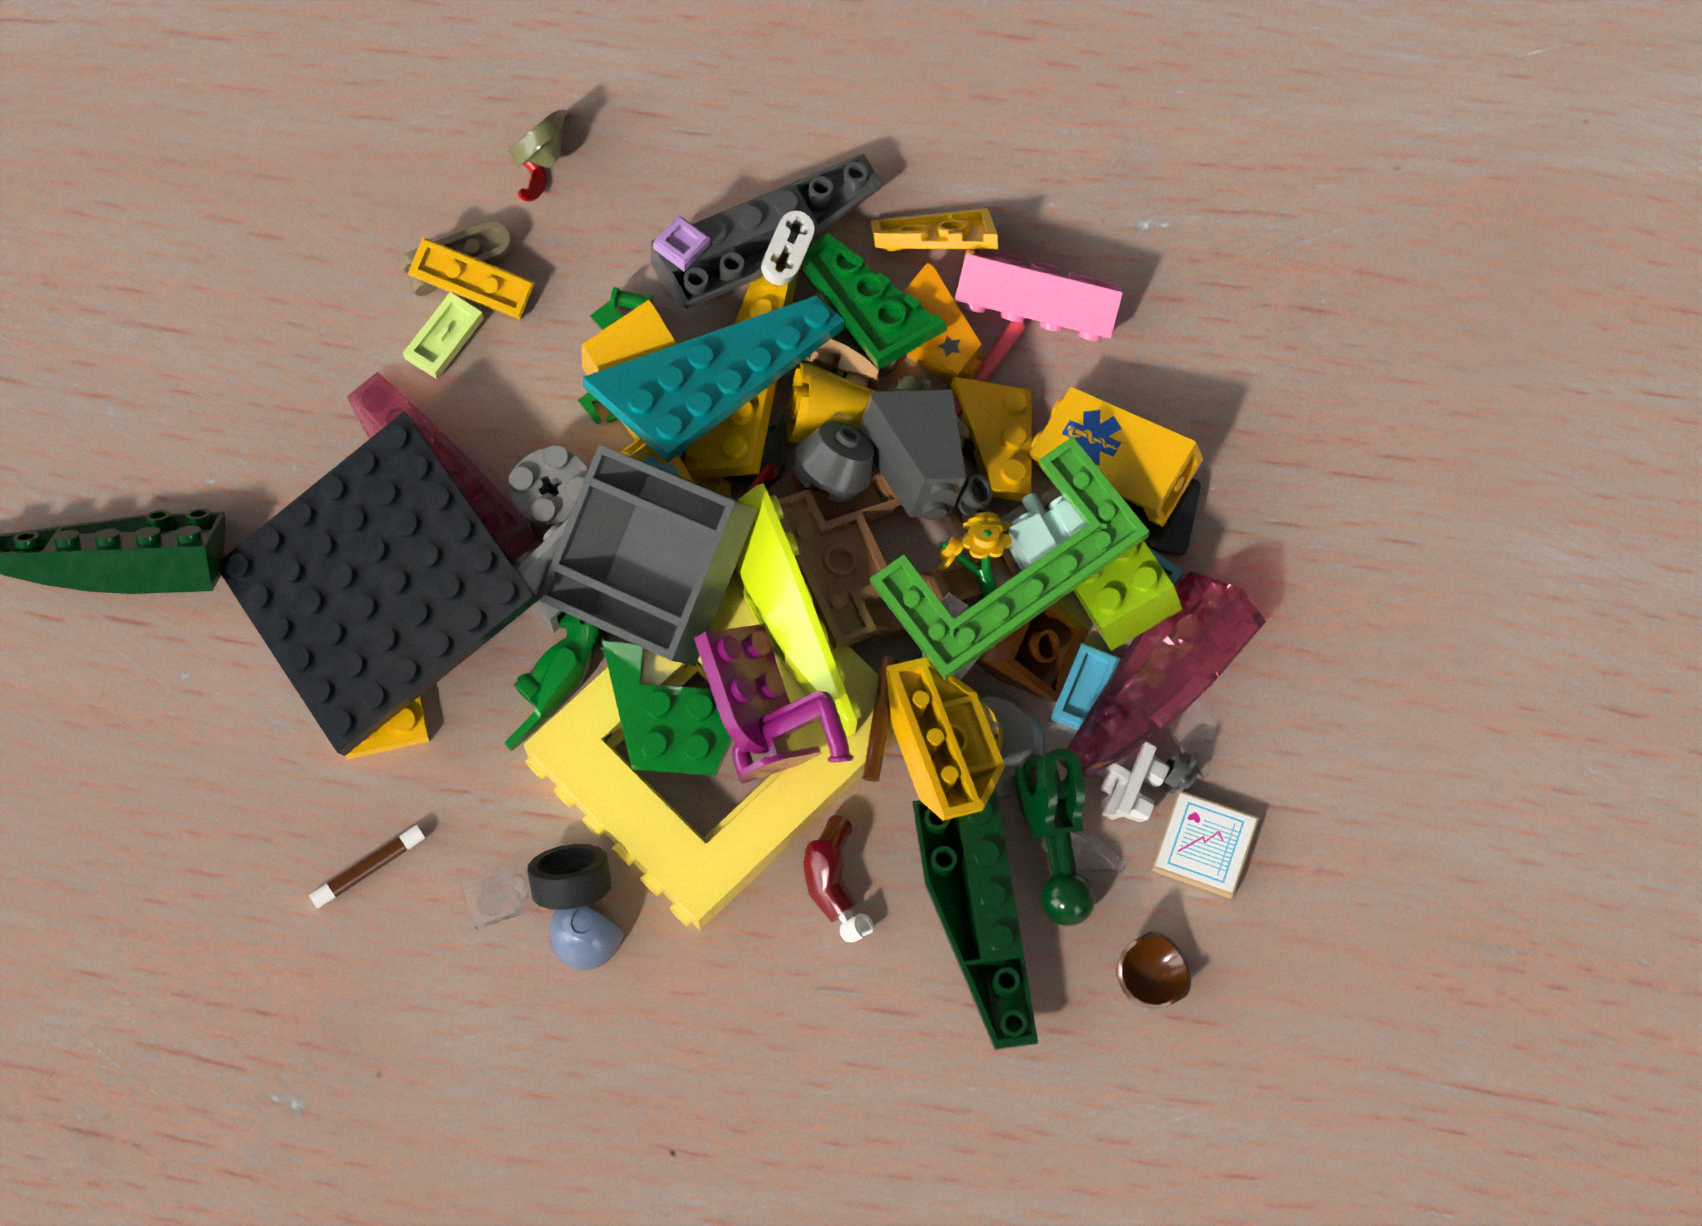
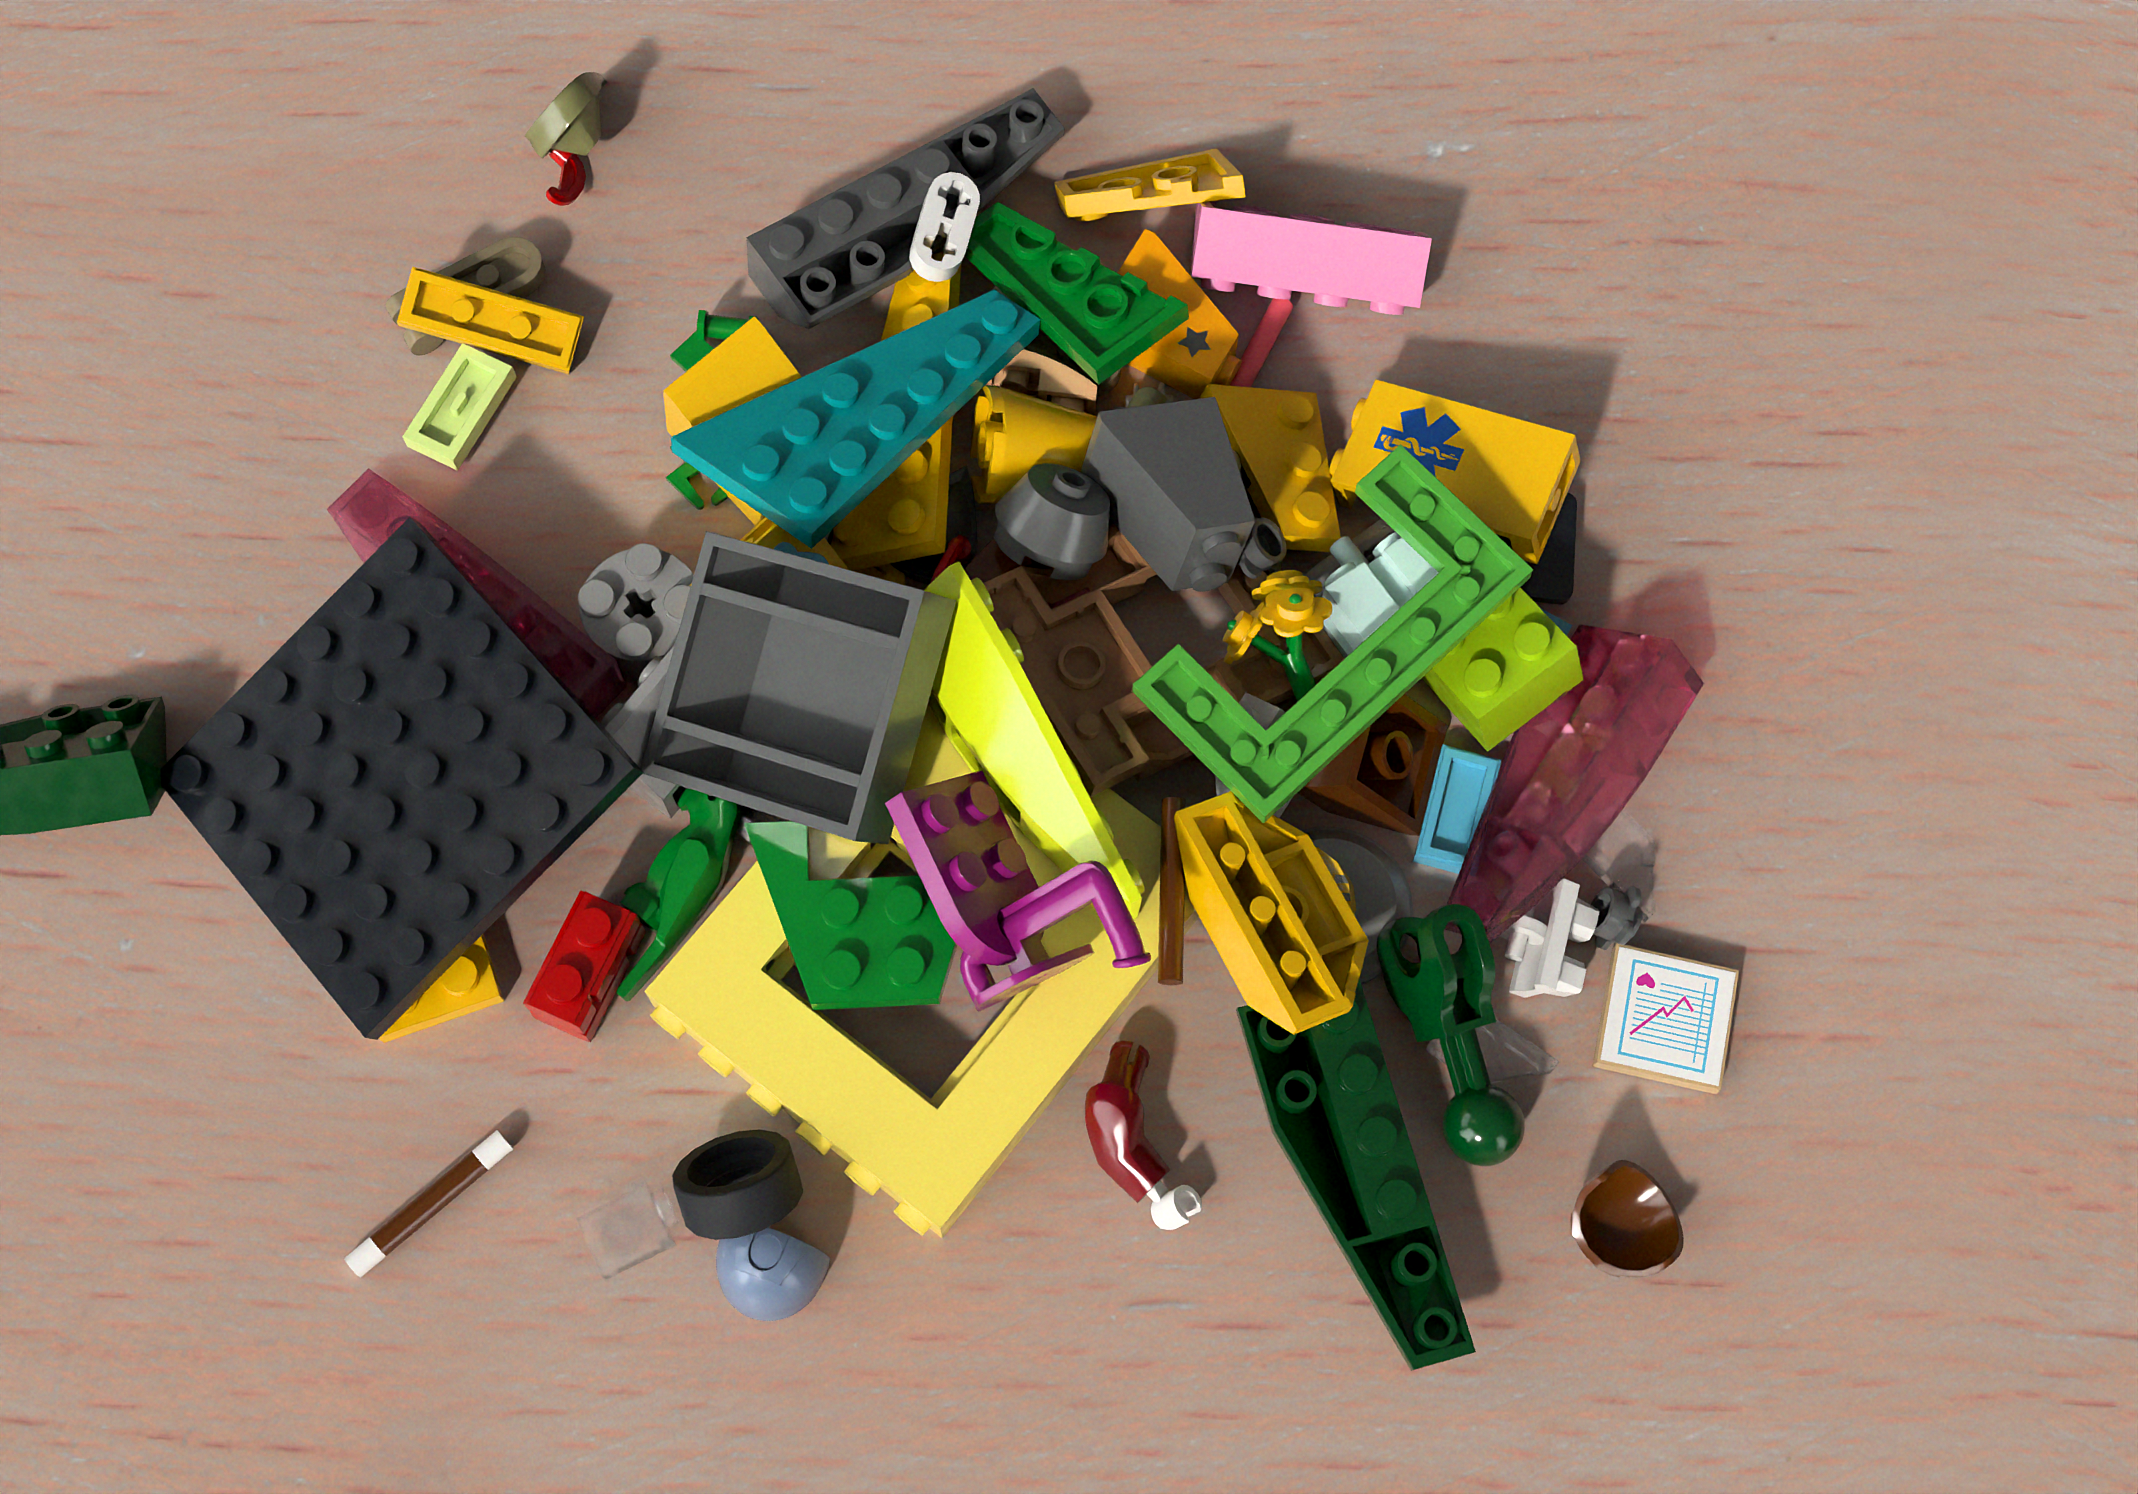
camera: 10 degrees left, 0 degrees up
(486, 724) = (584, 966): none -> red brick
(681, 243) = (791, 234): lavender tile -> none

